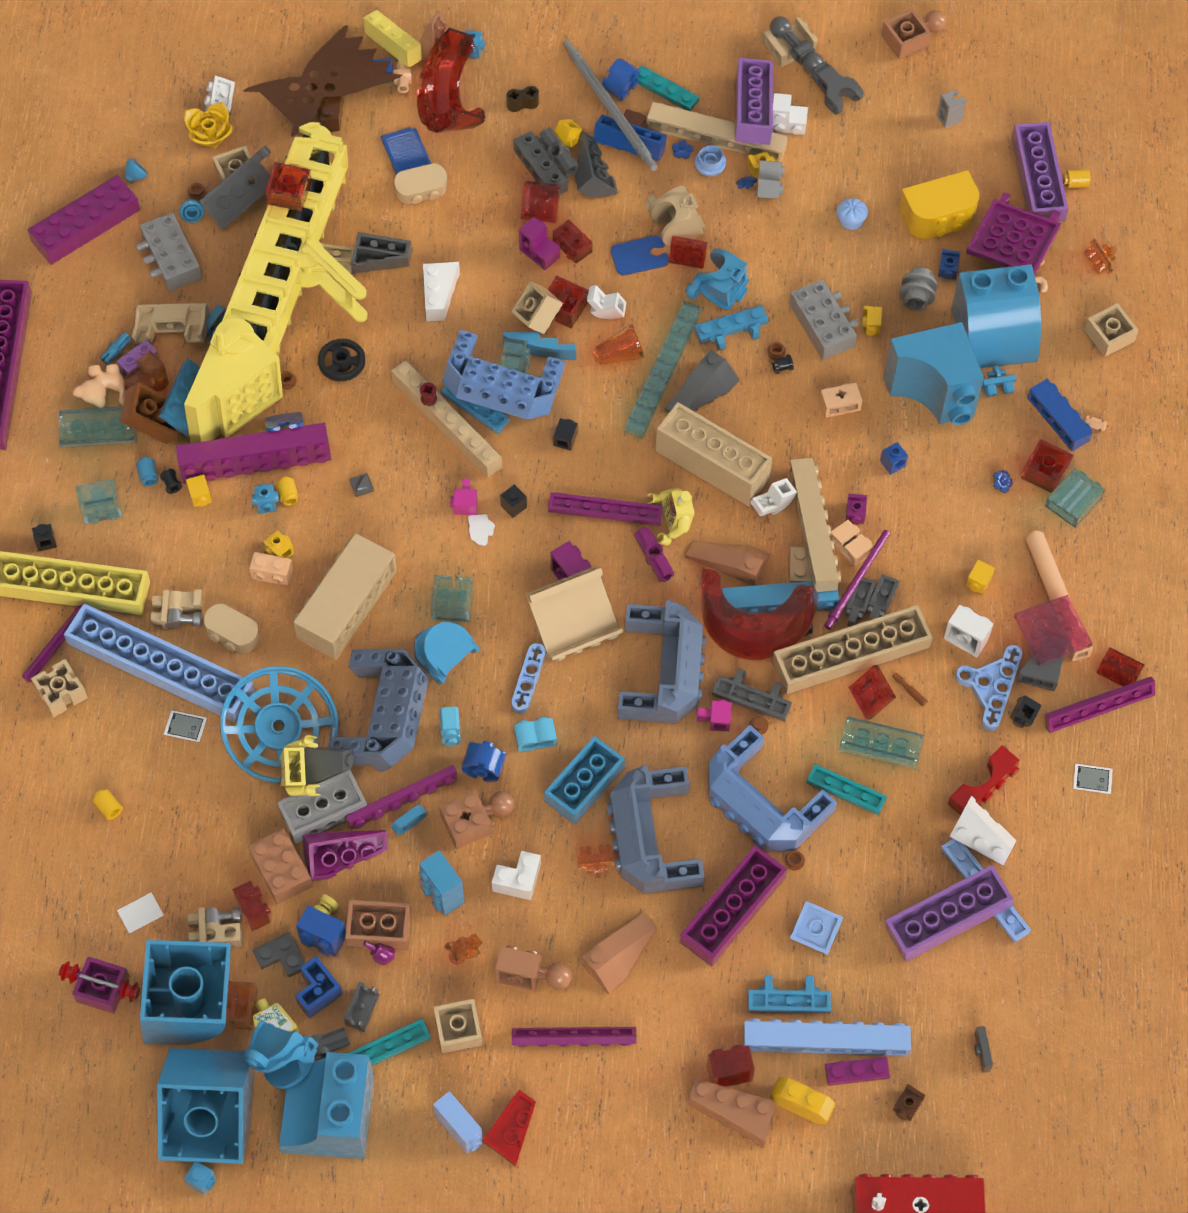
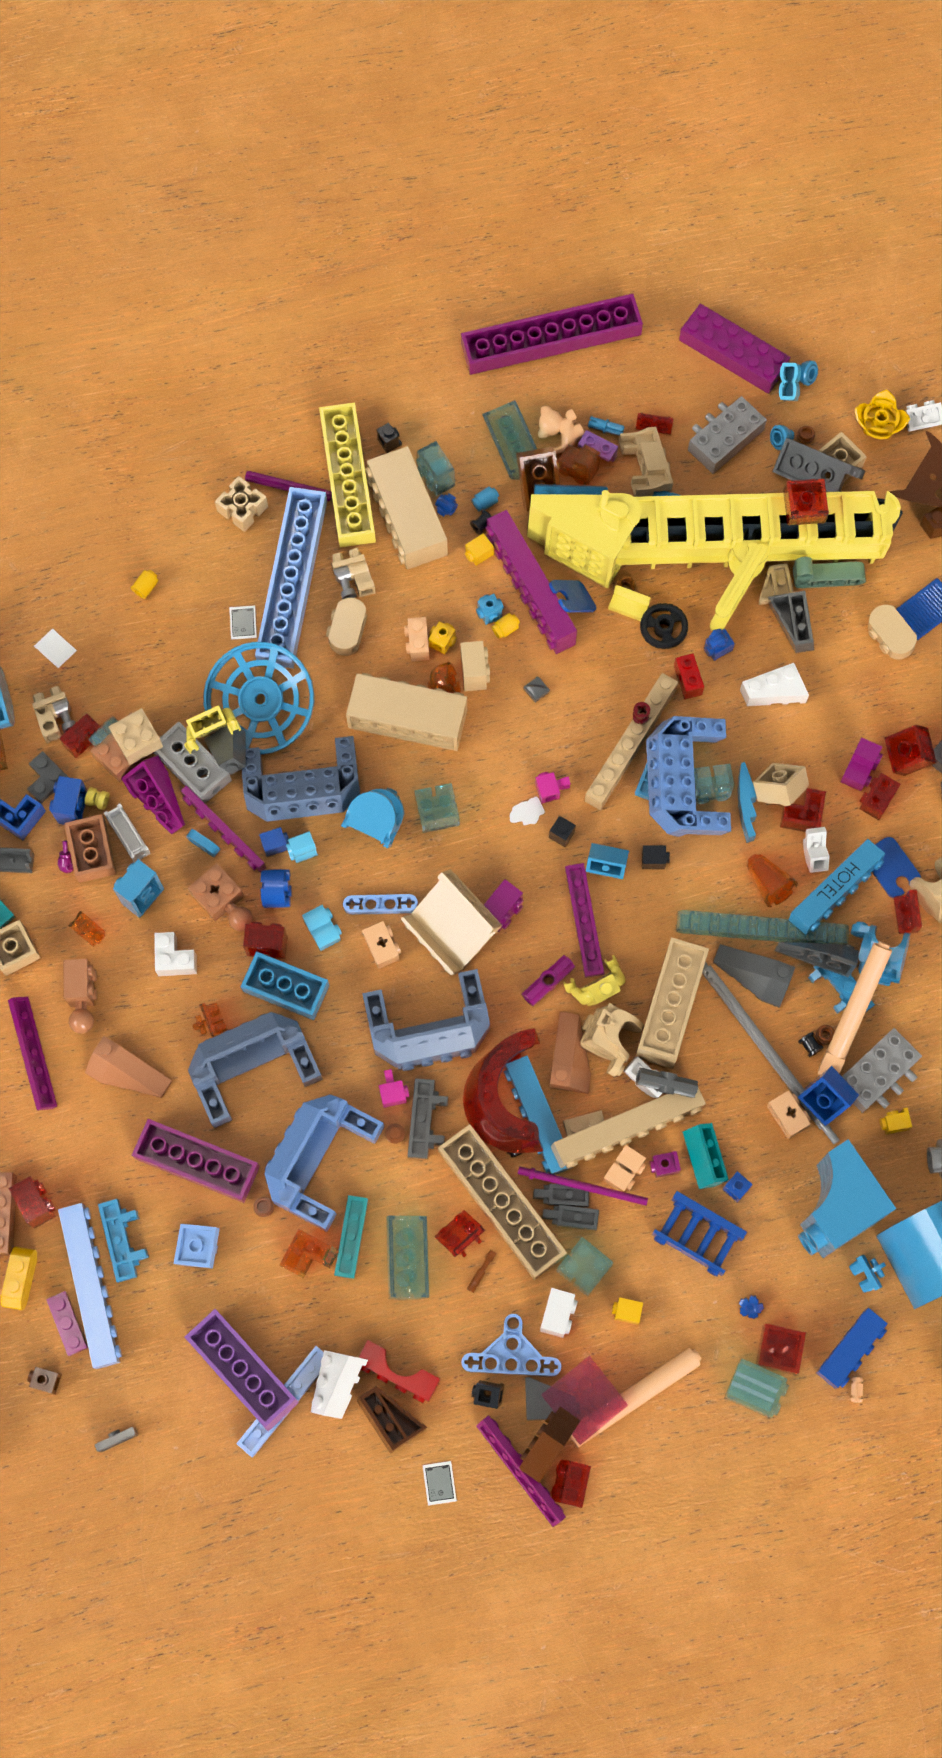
camera: 75 degrees right, 10 degrees up
(128, 310) = (663, 424): none -> clear red hinge
(131, 537) = (406, 508): none -> tan brick
(139, 506) = (446, 504): none -> blue gear
(145, 185) = (789, 388): none -> medium azure brick
(259, 875) = (102, 732): none -> clear light blue beam
(281, 841) = (135, 736): none -> tan brick
(306, 382) = (629, 603): none -> light yellow panel
(320, 525) = (475, 666): none -> tan brick
(322, 556) = (444, 678): none -> clear orange cylinder
(339, 227) = (827, 574): none -> sand green beam
(373, 889) = (127, 833): none -> white container
(378, 321) = (718, 644): none -> blue brick
(397, 351) = (688, 676): none -> red brick
(432, 754) = (274, 841): none -> blue brick
(534, 781) = (265, 939): none -> clear red brick
(556, 471) = (607, 861): none -> dark azure brick
(564, 693) = (379, 933): none -> light nougat brick
(648, 296) = (836, 887): none -> dark azure brick
(712, 318) = (832, 957): none -> dark grey wedge
(725, 516) = (602, 1035): none -> tan animal
(786, 396) = (762, 1043): none -> light grey axle
(787, 477) = (667, 1082): none -> dark grey piece
(803, 348) = (856, 1007): none -> light nougat brick
(836, 359) = (828, 1096): none -> blue brick
(849, 829) = (304, 1250): none -> clear orange brick
(859, 473) = (705, 1156): none -> teal brick
(921, 484) = (715, 1222): none -> blue fence
(932, 595) = (585, 1265): none -> clear light blue piece
(1027, 800) = (388, 1419): none -> reddish brown wedge
(1087, 664) = (549, 1444): none -> reddish brown brick

